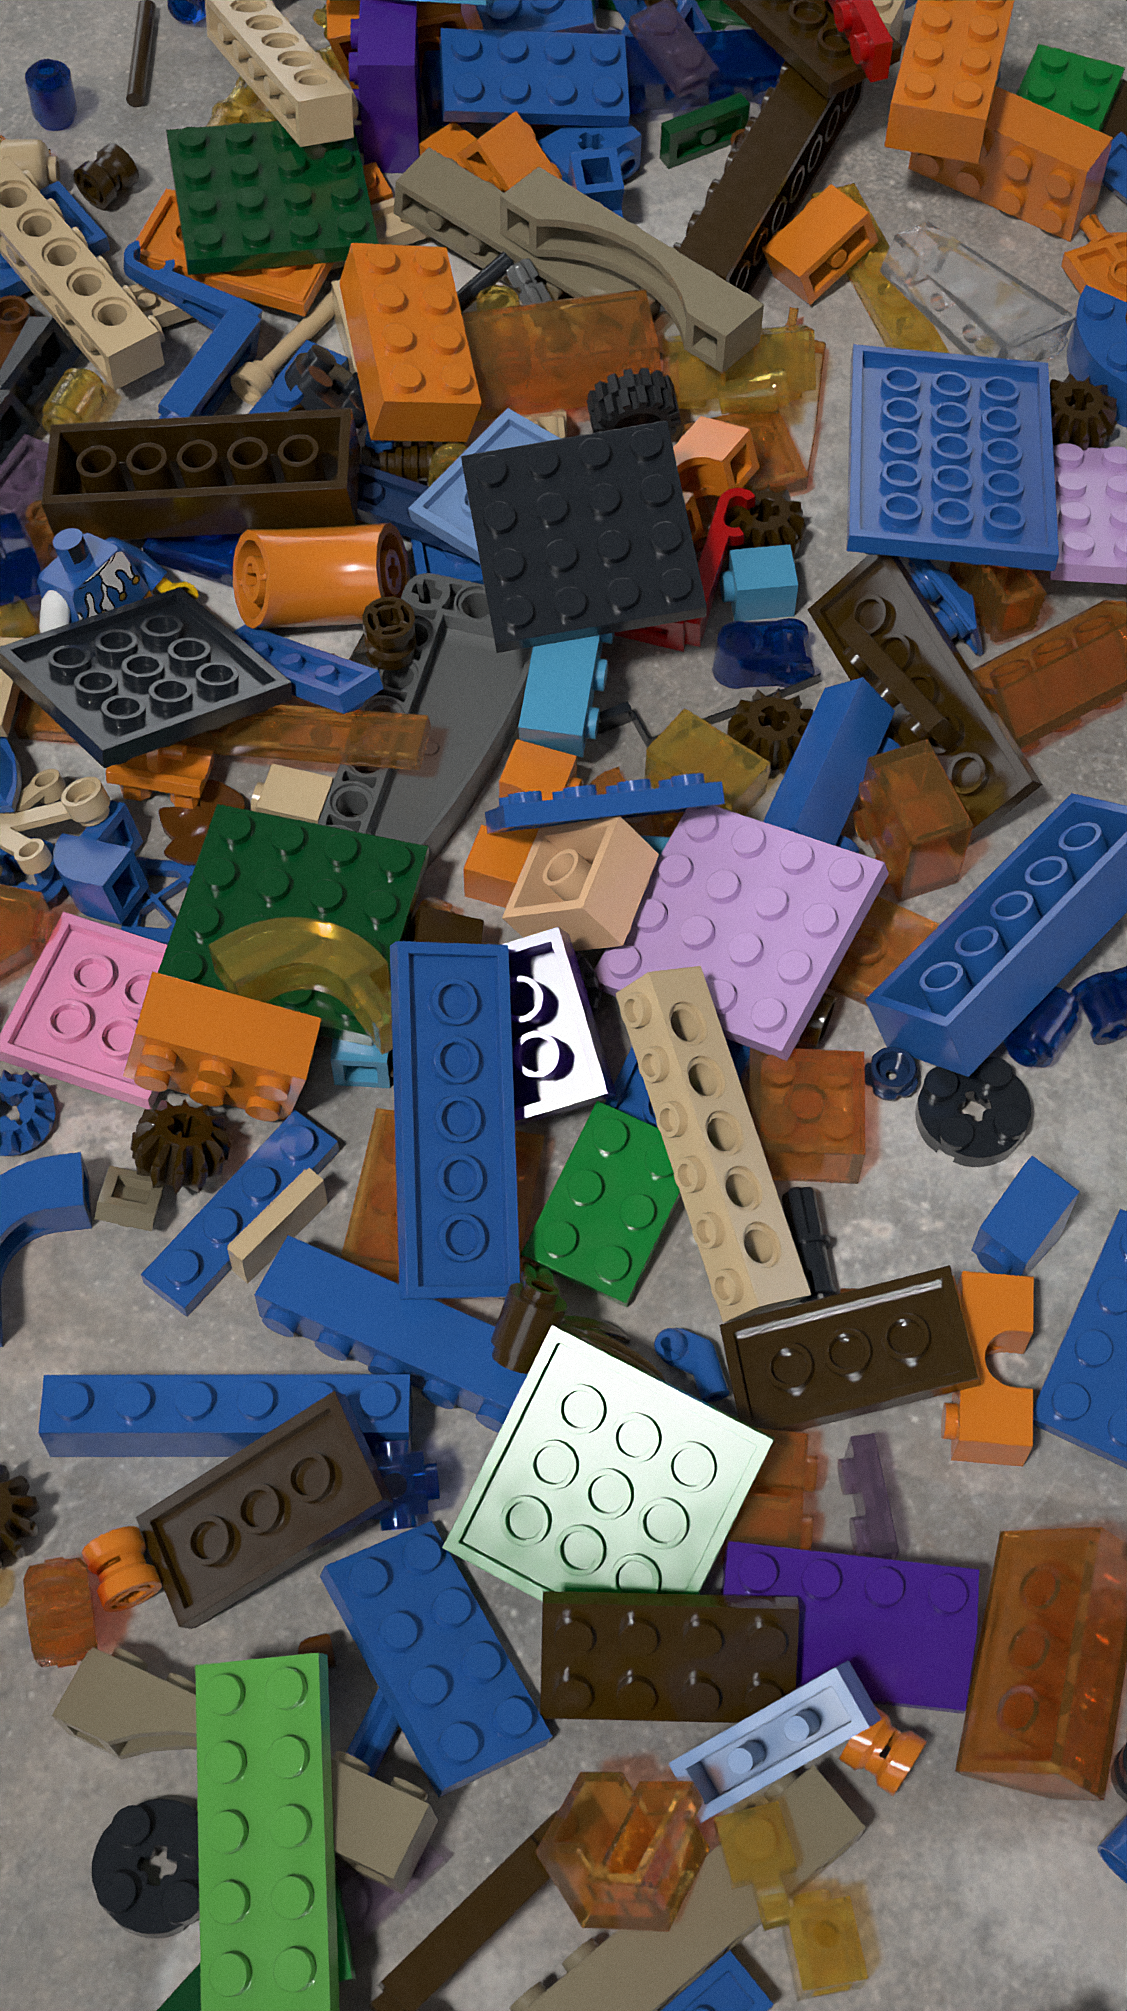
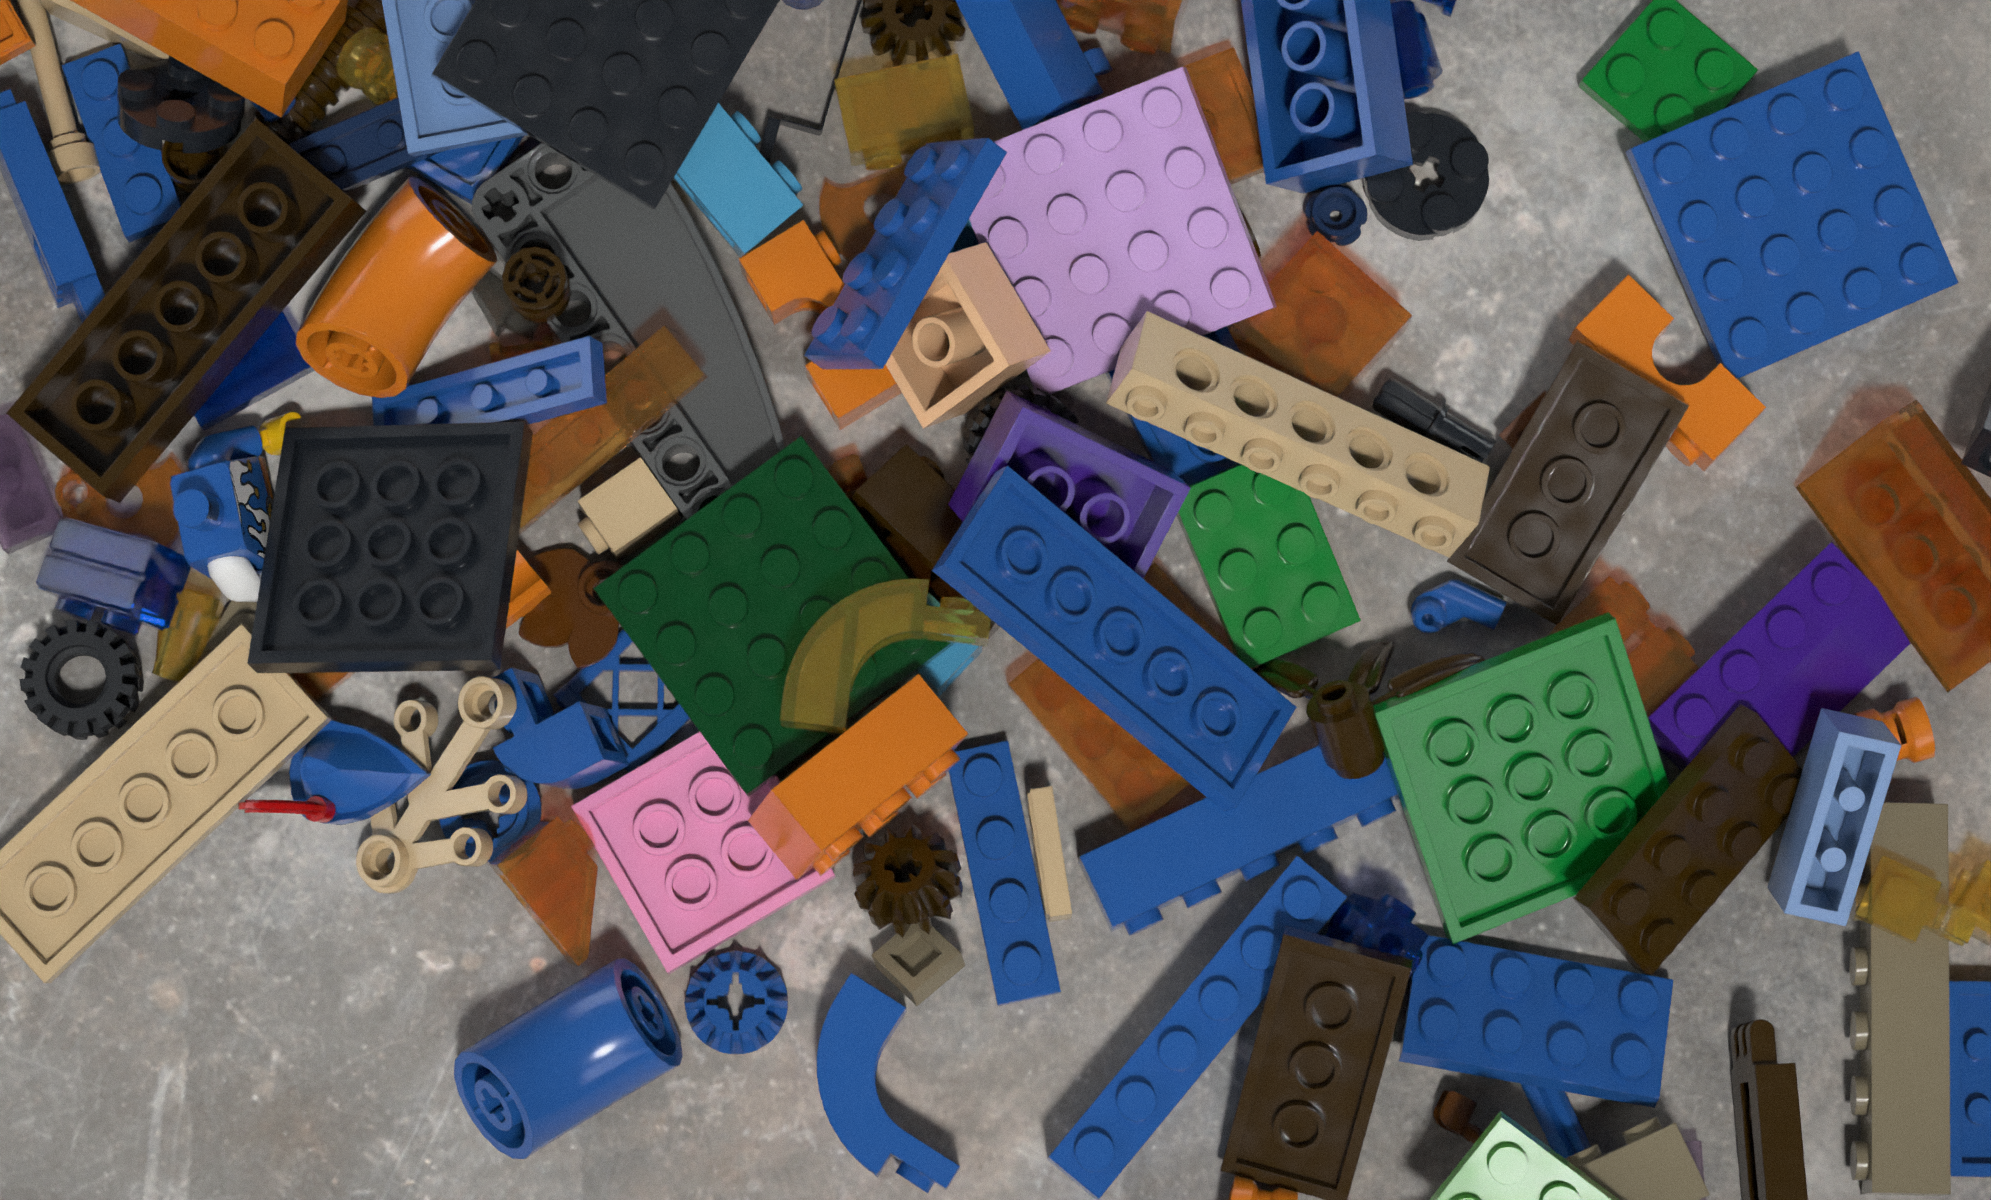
camera: 50 degrees left, 20 degrees up
(625, 1852) = (1823, 1000): clear orange plate -> none
(862, 1476) = (1716, 586): clear purple plate -> none
(1025, 1221) = (1574, 238): blue slope -> none

